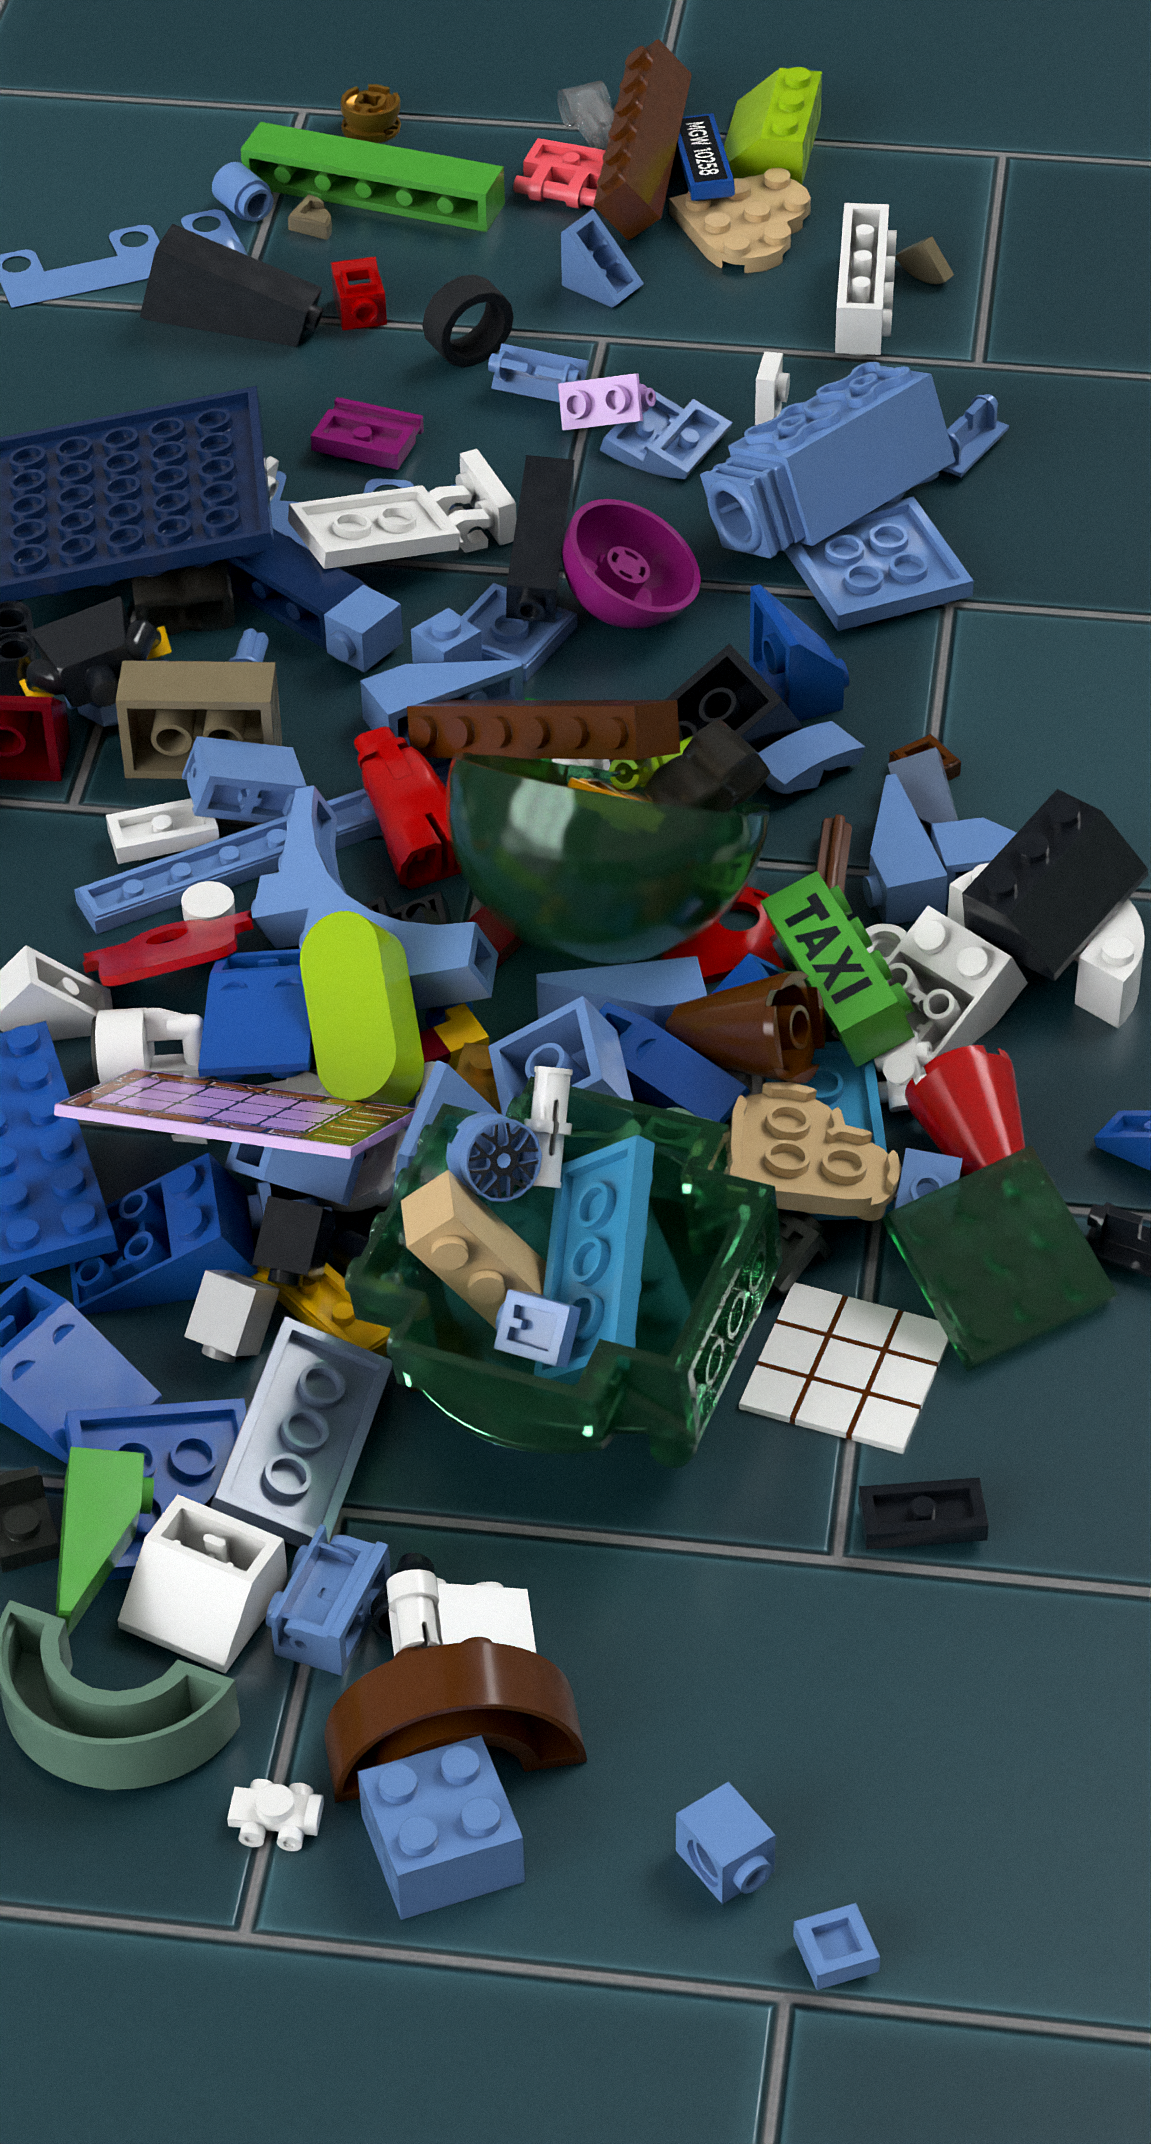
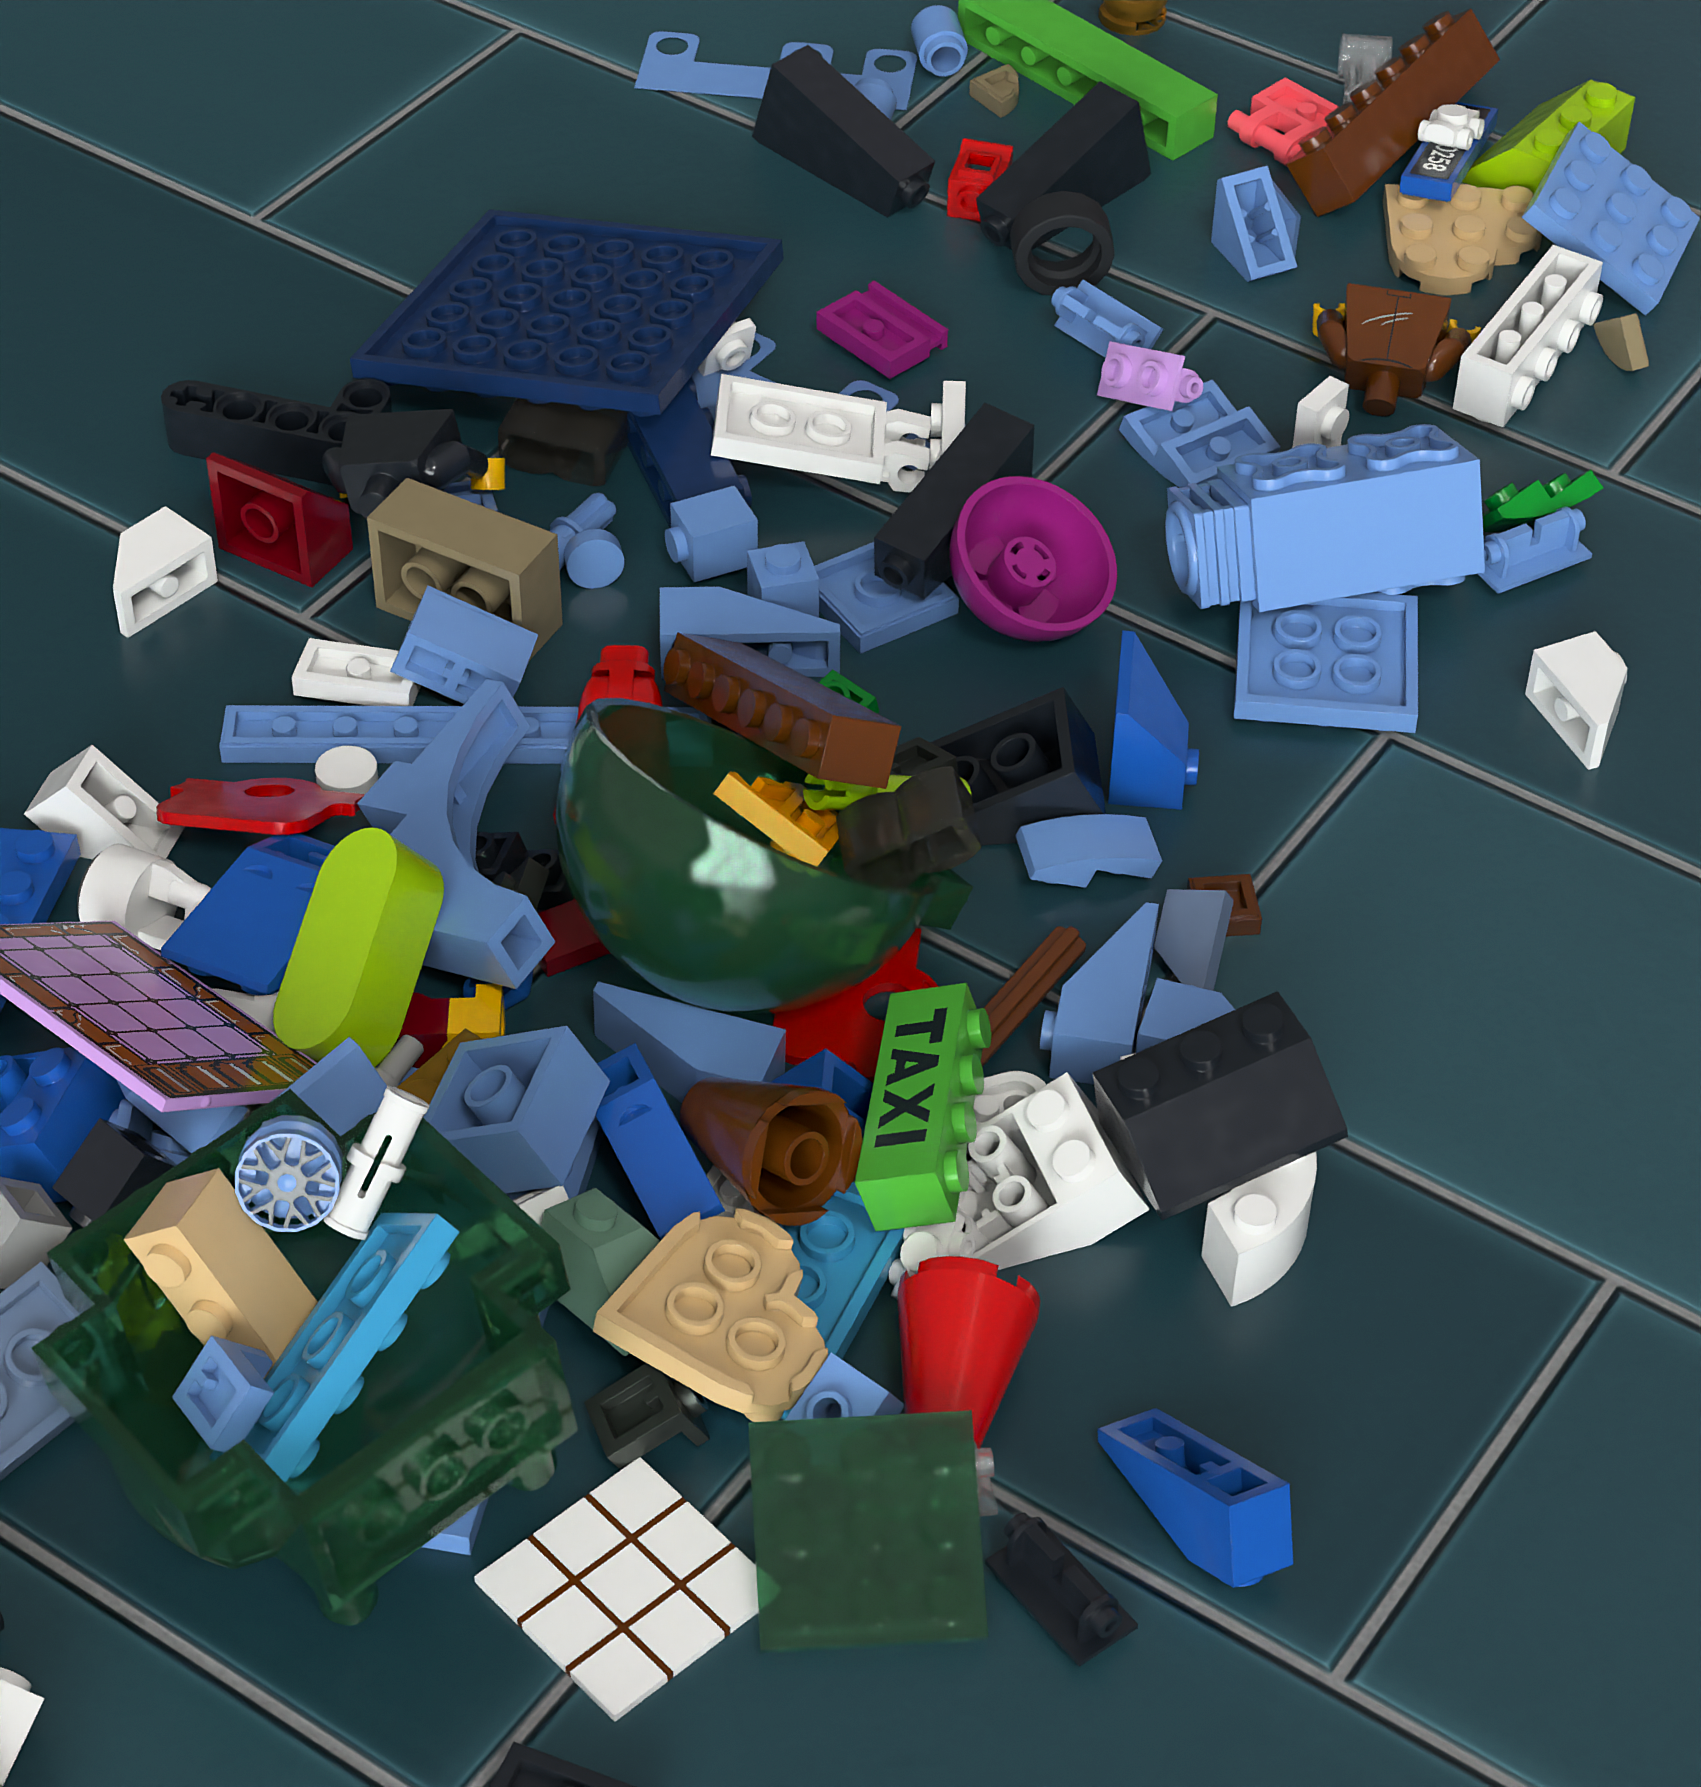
camera: 25 degrees right, 0 degrees up
(289, 677) = (593, 558): none -> medium blue tile
(432, 253) = (1088, 151): none -> black slope
(699, 137) = (1452, 127): none -> white piece
(761, 314) = (1390, 342): none -> reddish brown torso
(862, 167) = (1612, 213): none -> medium blue plate
(963, 389) = (1517, 507): none -> green slope
(1073, 527) = (1578, 692): none -> white slope

